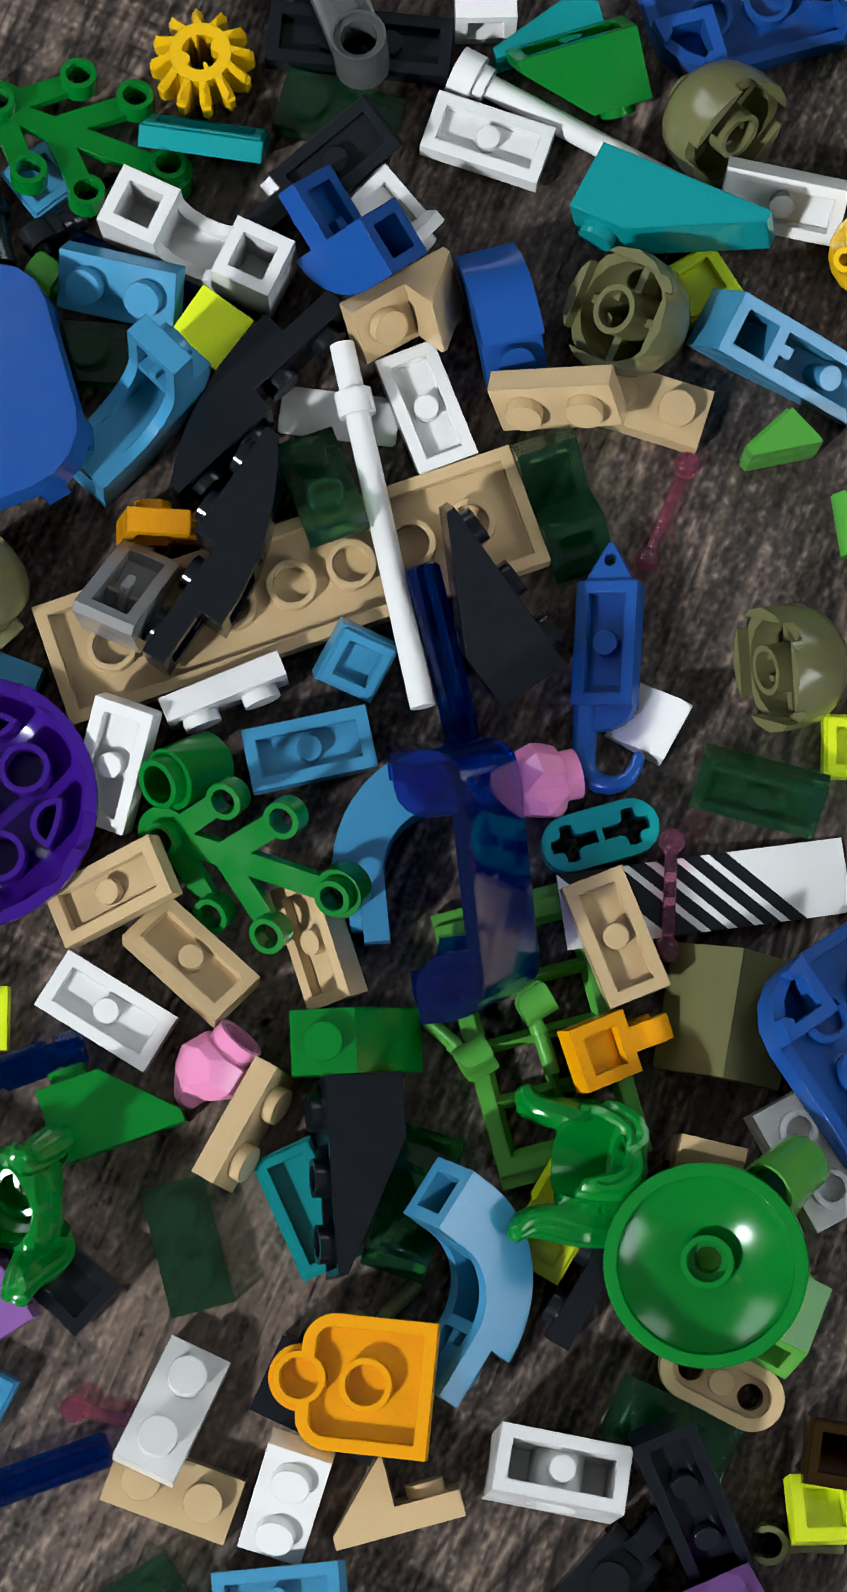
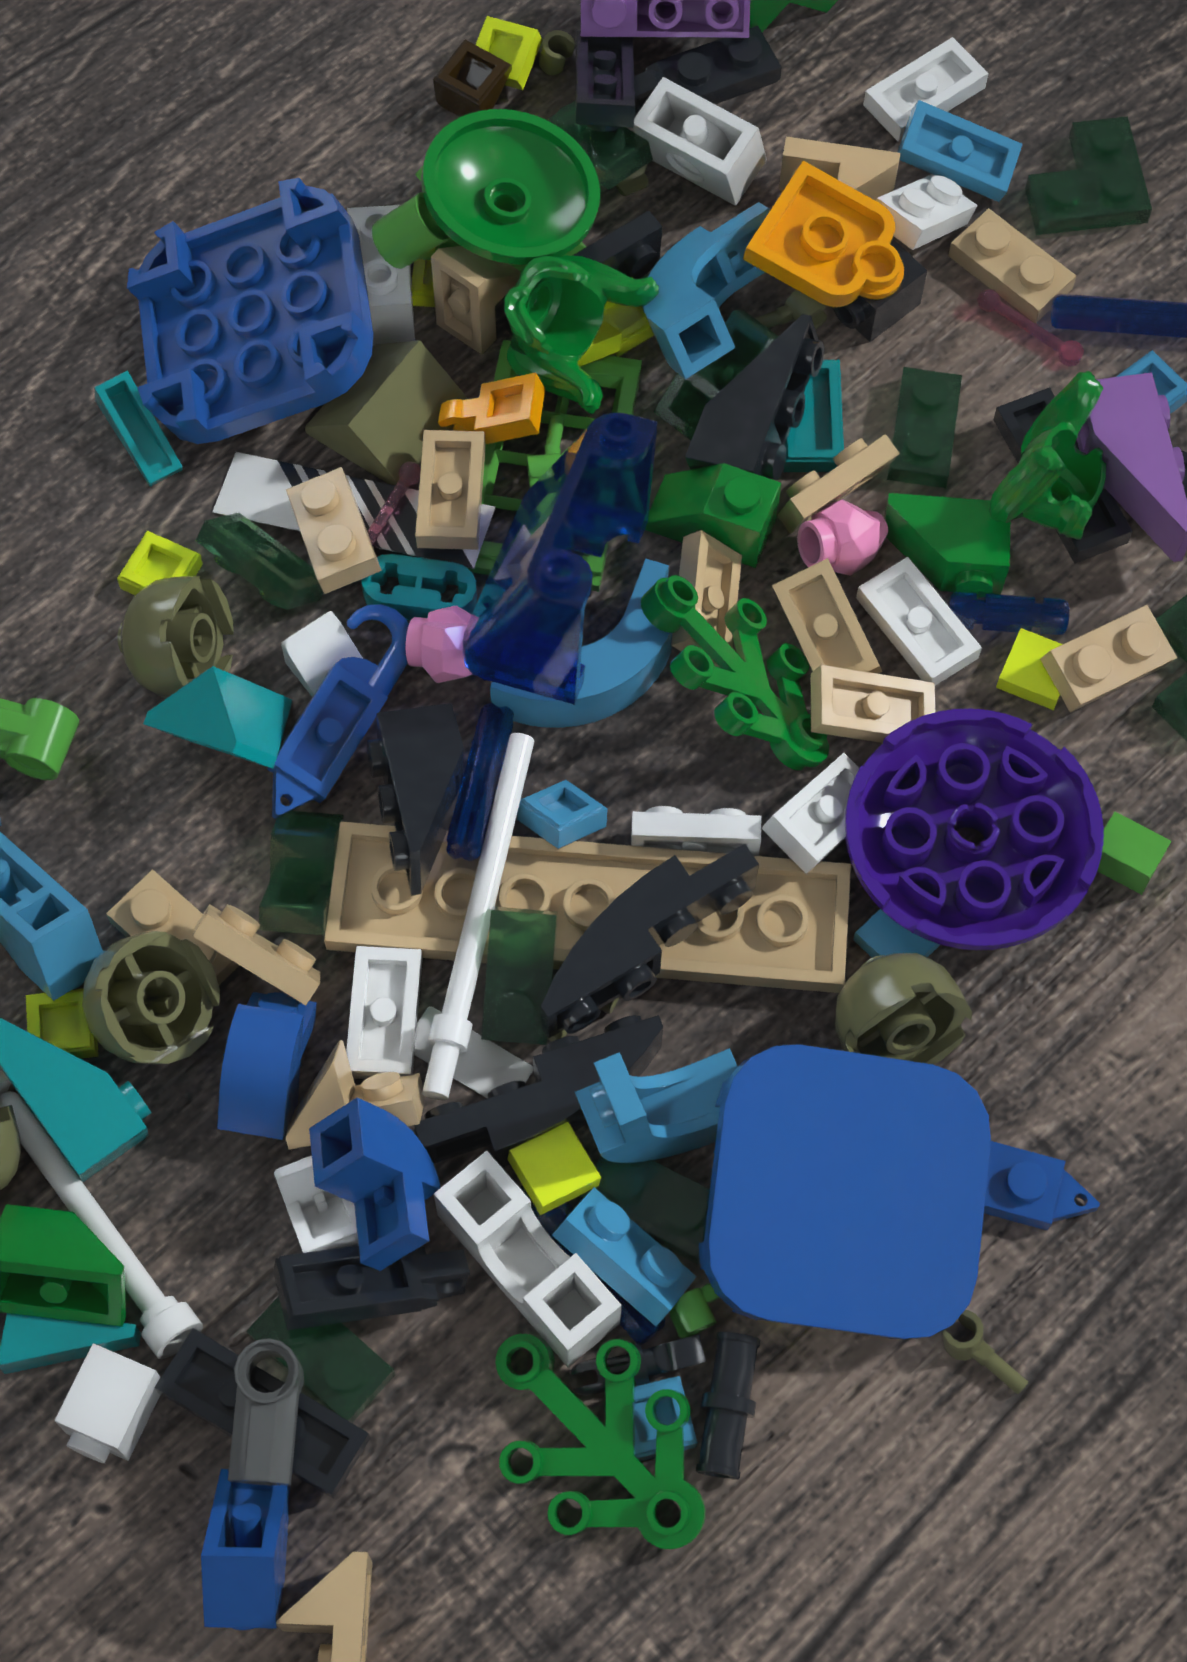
camera: 155 degrees left, 15 degrees down
(125, 594) = (751, 936): light grey slope -> none
(156, 525) = (688, 1006): light orange plate -> none
(171, 1411) = (990, 307): white plate -> none
(185, 770) = (761, 775): green brick -> none
(197, 43) = (409, 1461): yellow gear -> none
(204, 138) = (470, 1376): teal tile -> none
(309, 749) = (640, 759): dark azure plate -> none
(487, 141) = (188, 1251): white plate -> none
(685, 468) = (170, 866): clear pink hinge -> none
(692, 595) = (225, 716): none -> teal slope
(707, 848) = (333, 530): none -> tan plate
(781, 442) = (76, 838): bright green slope -> none

